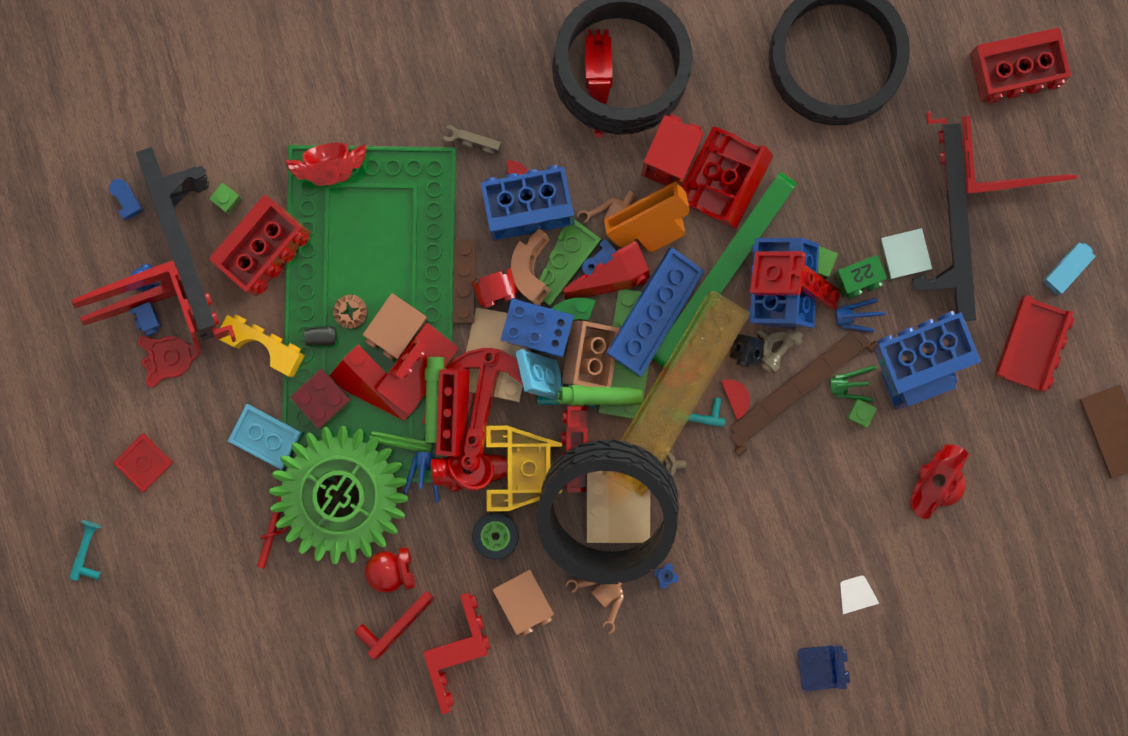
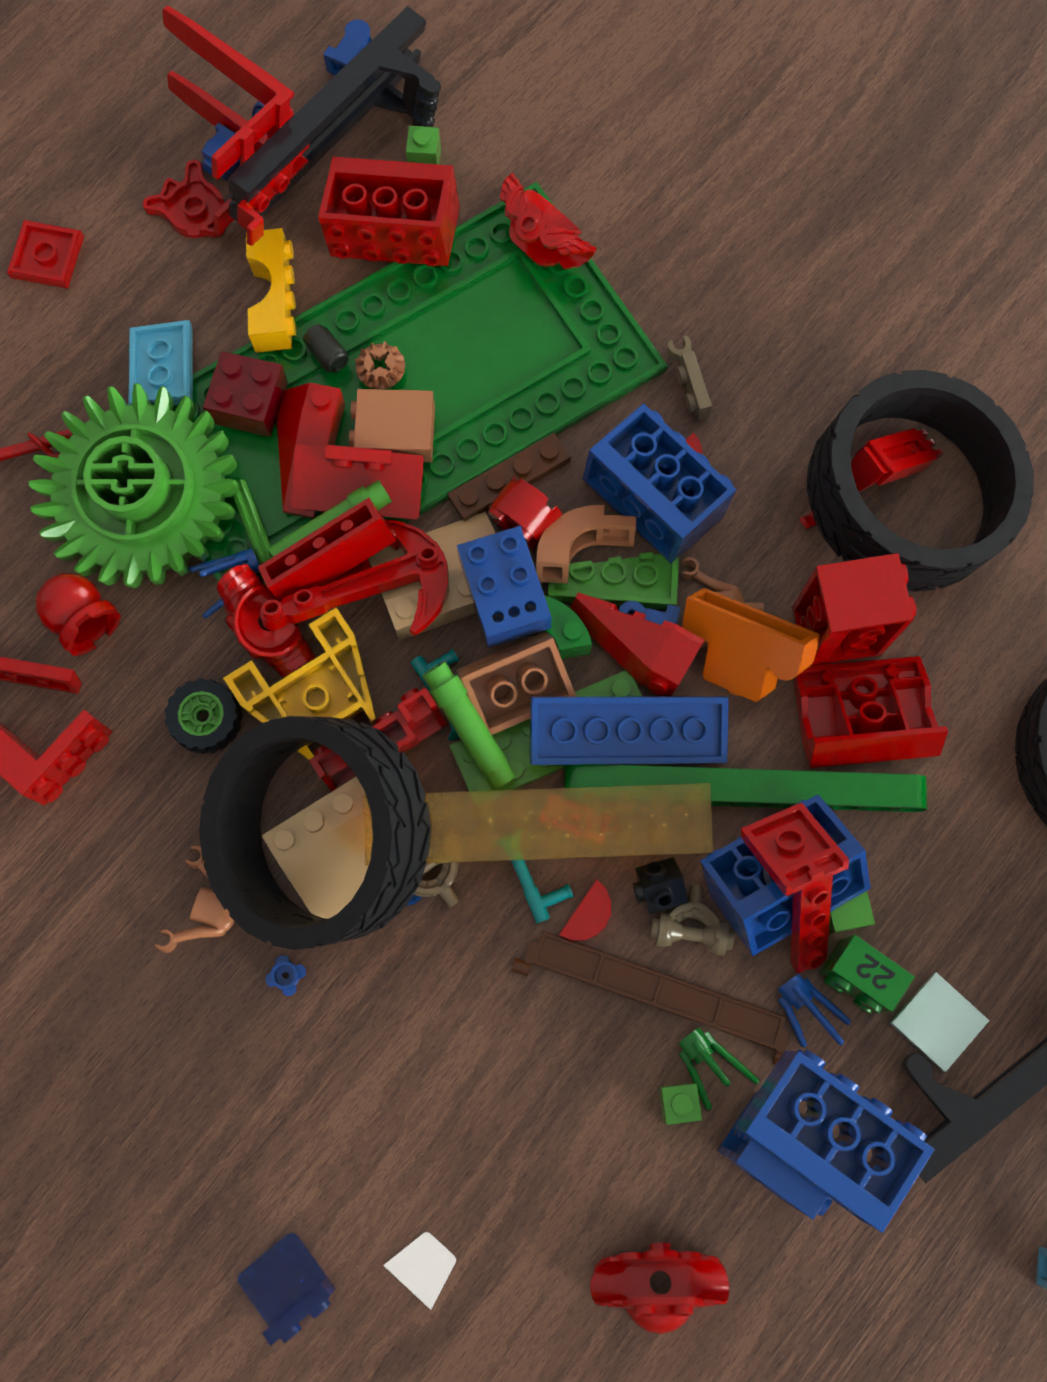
camera: 60 degrees right, 10 degrees down
(523, 603) = (134, 807): nougat brick -> none
(539, 374) = (446, 627): medium azure tile -> none
(1034, 344) = (946, 1297): red panel -> none

